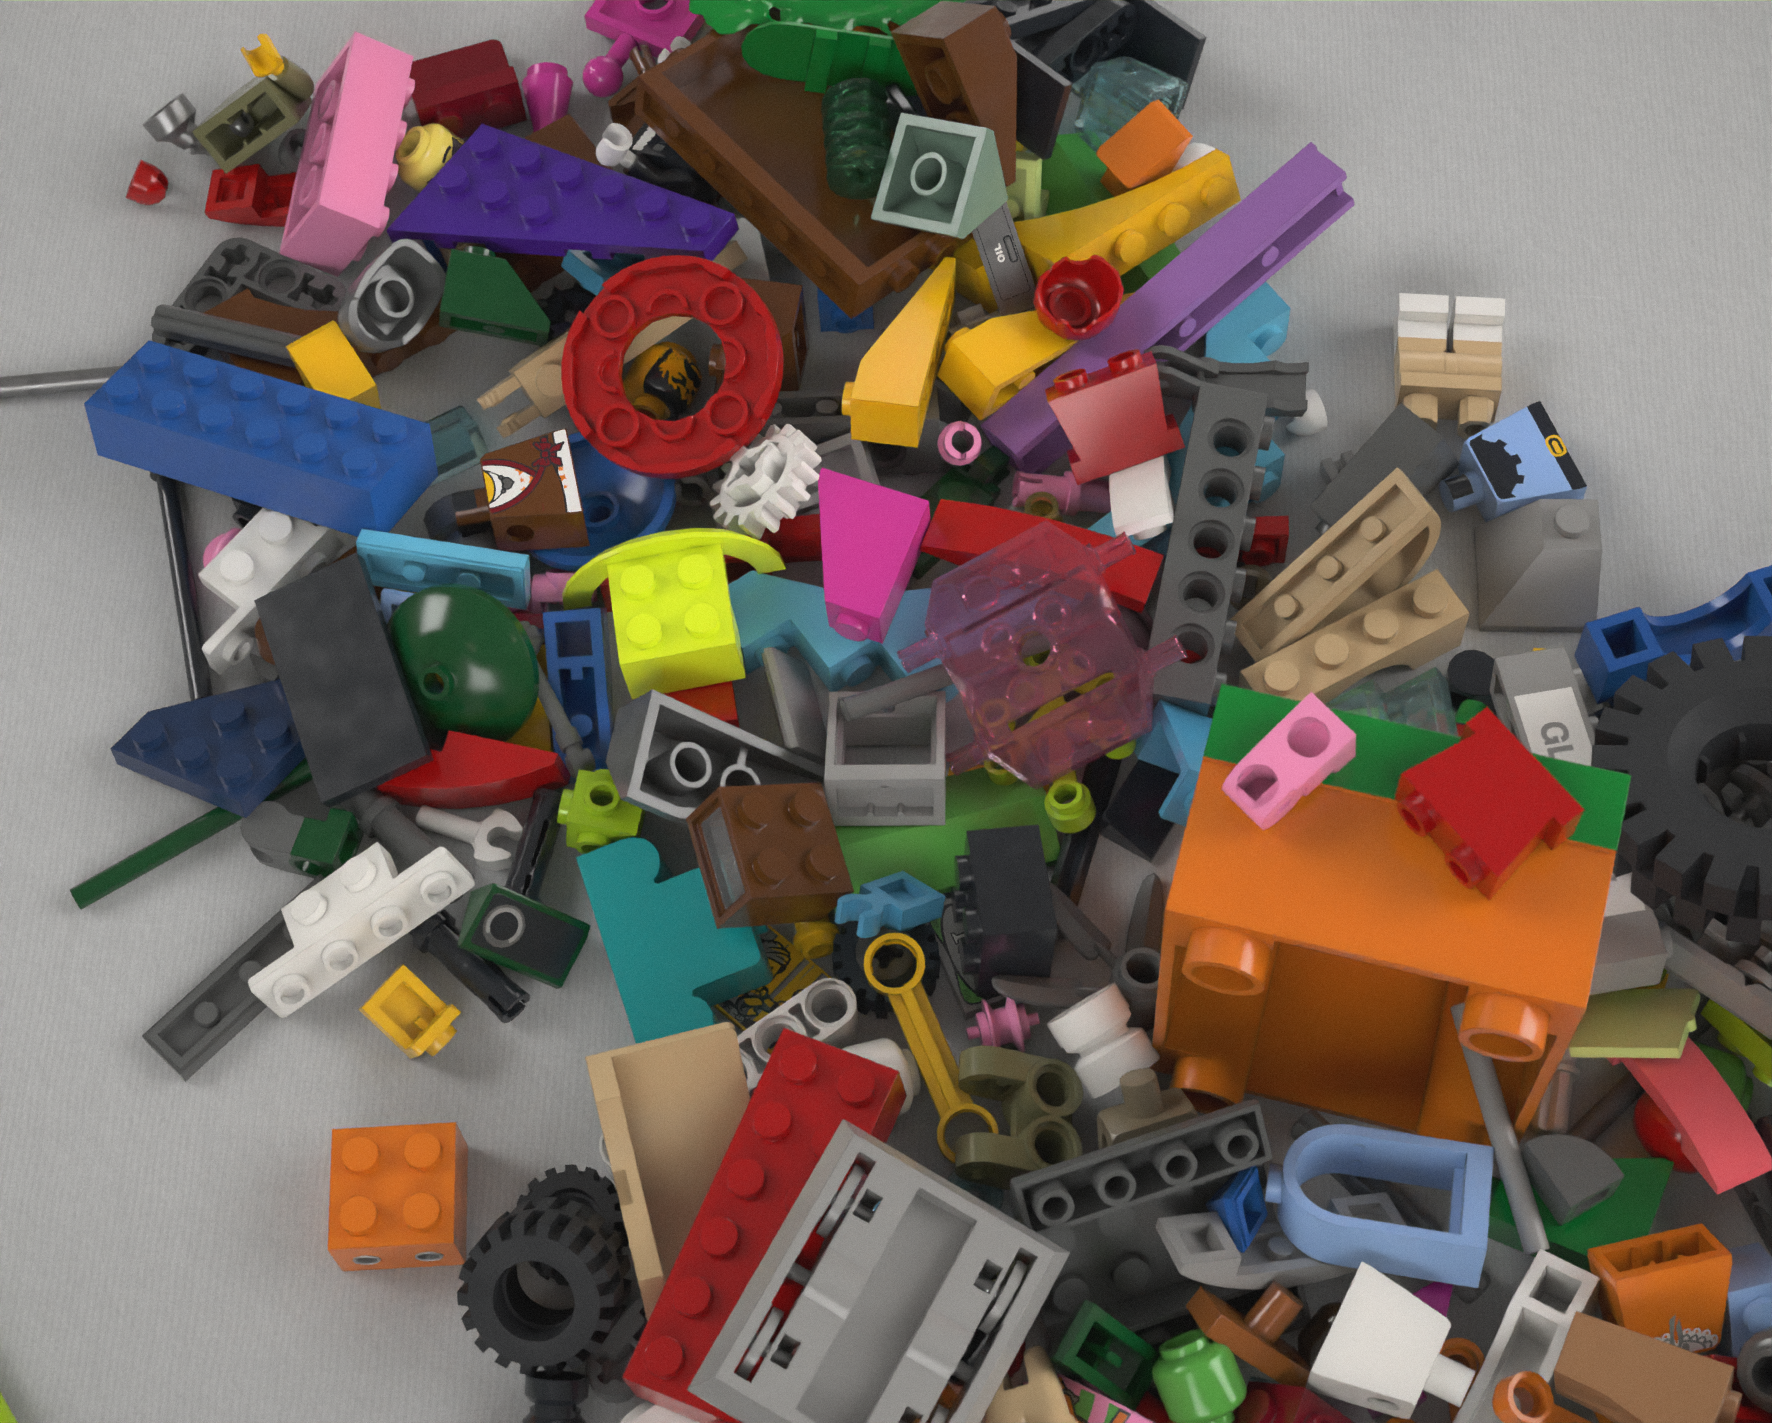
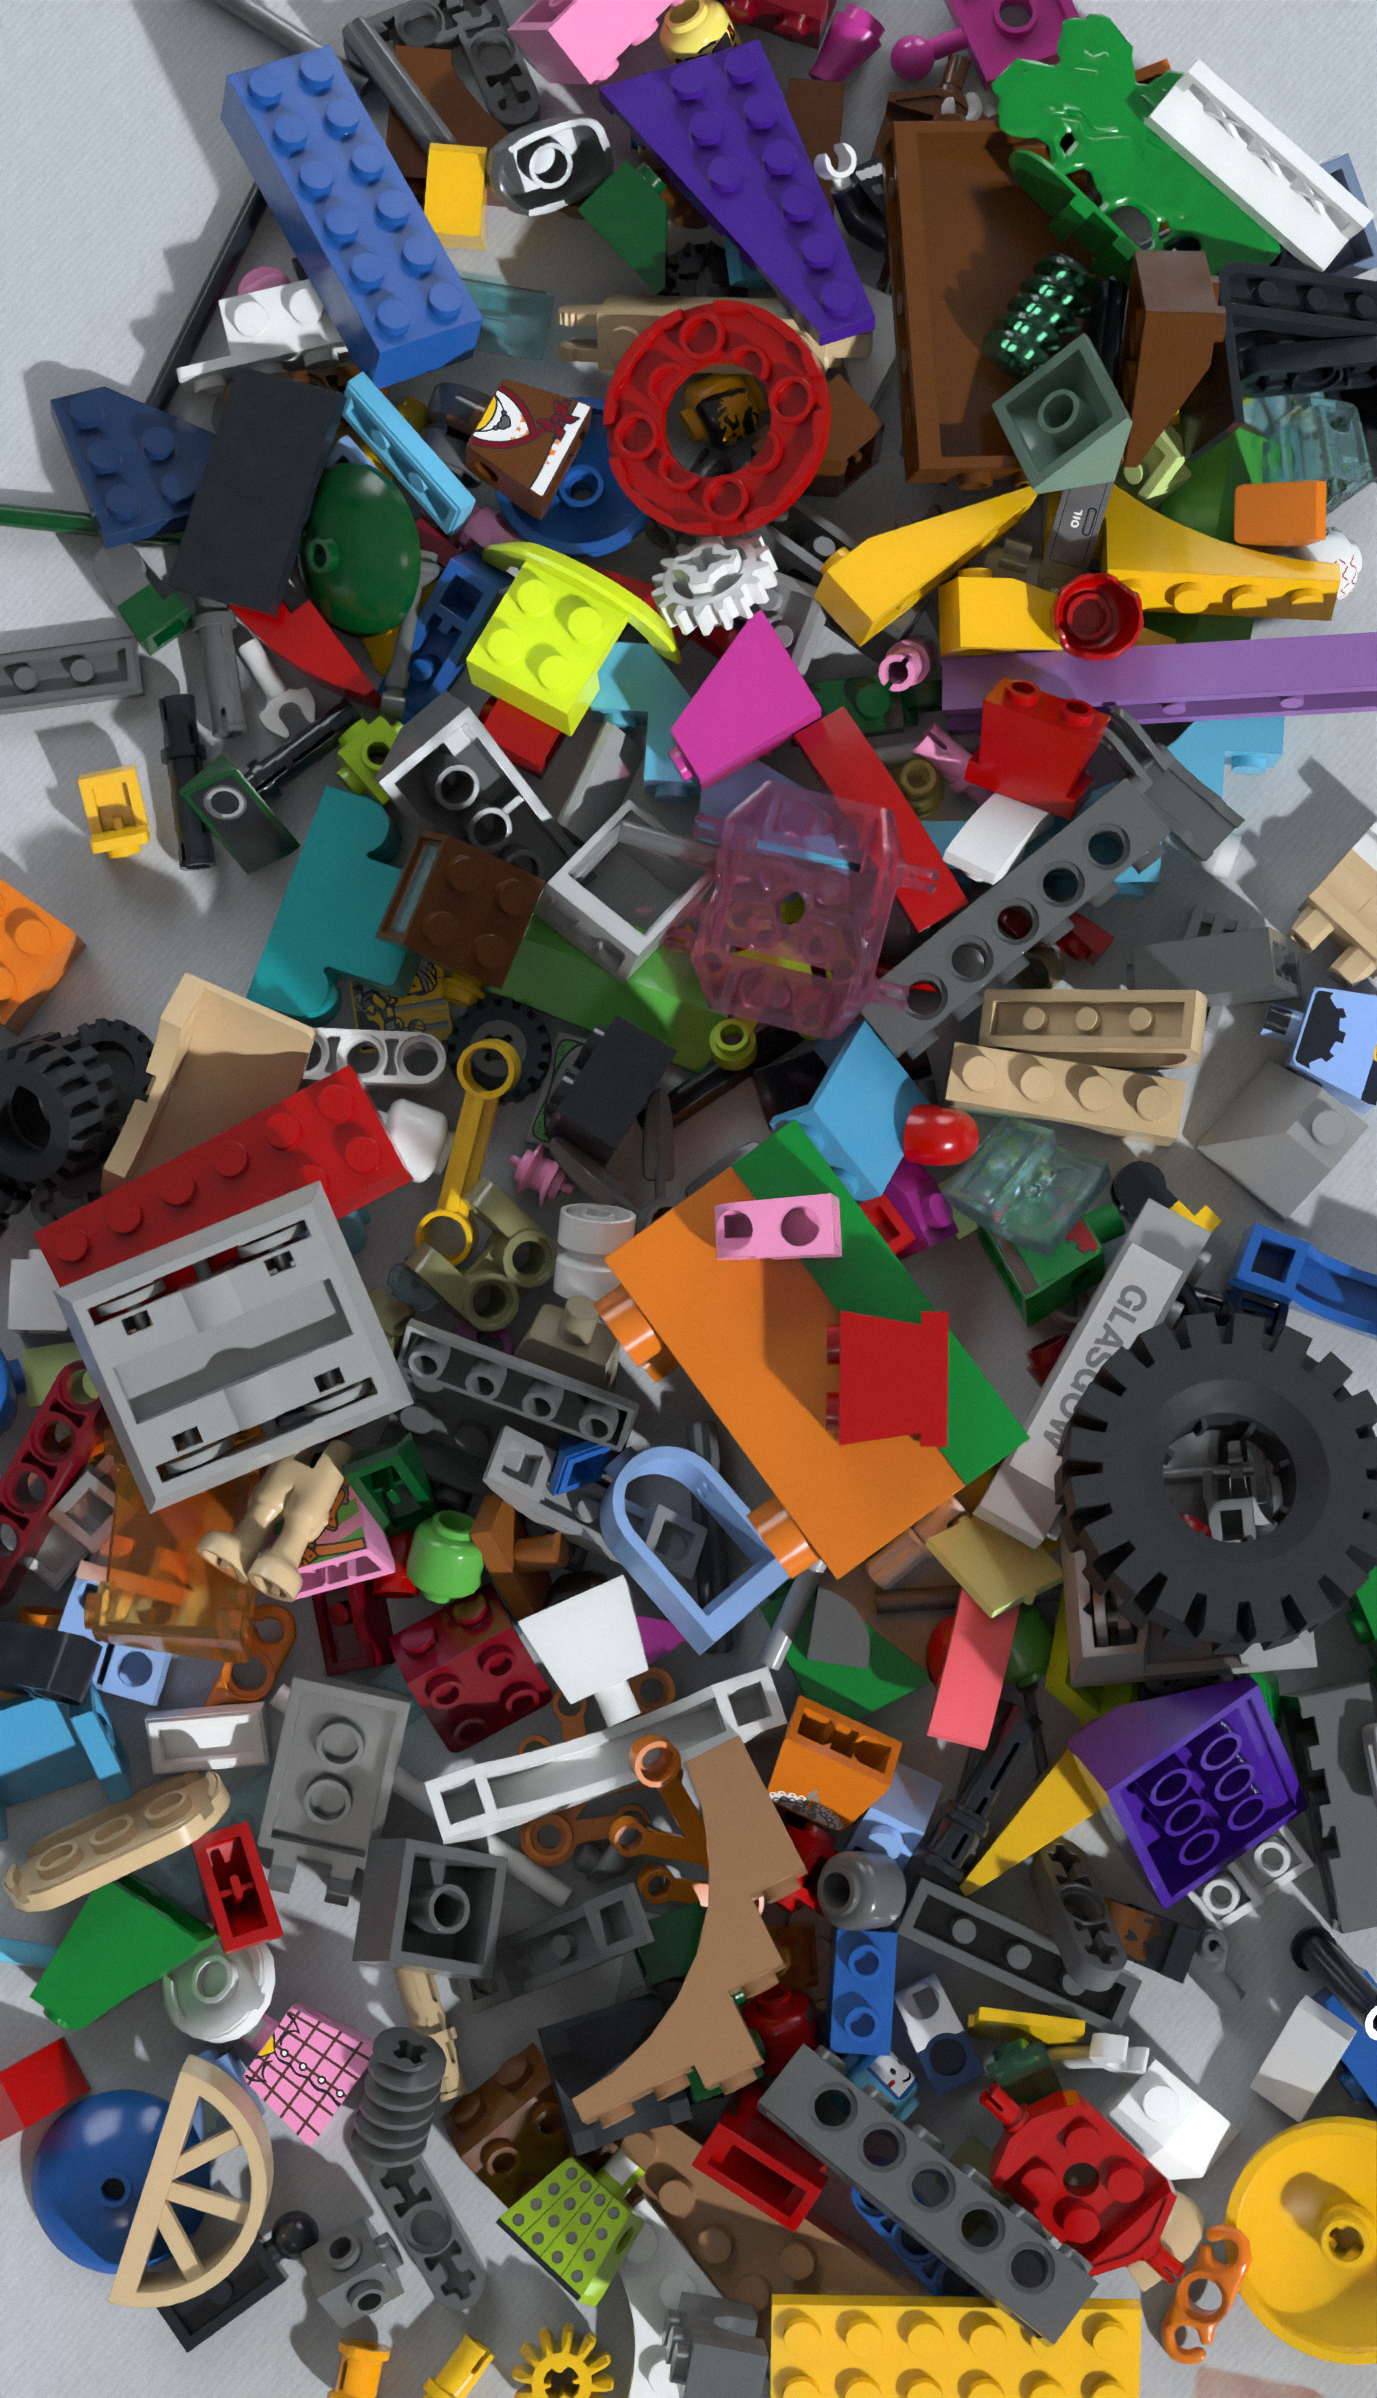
camera: 35 degrees right, 20 degrees up
(353, 919) = (125, 699): white bracket -> none
(891, 902) = (528, 1018): dark azure plate -> none

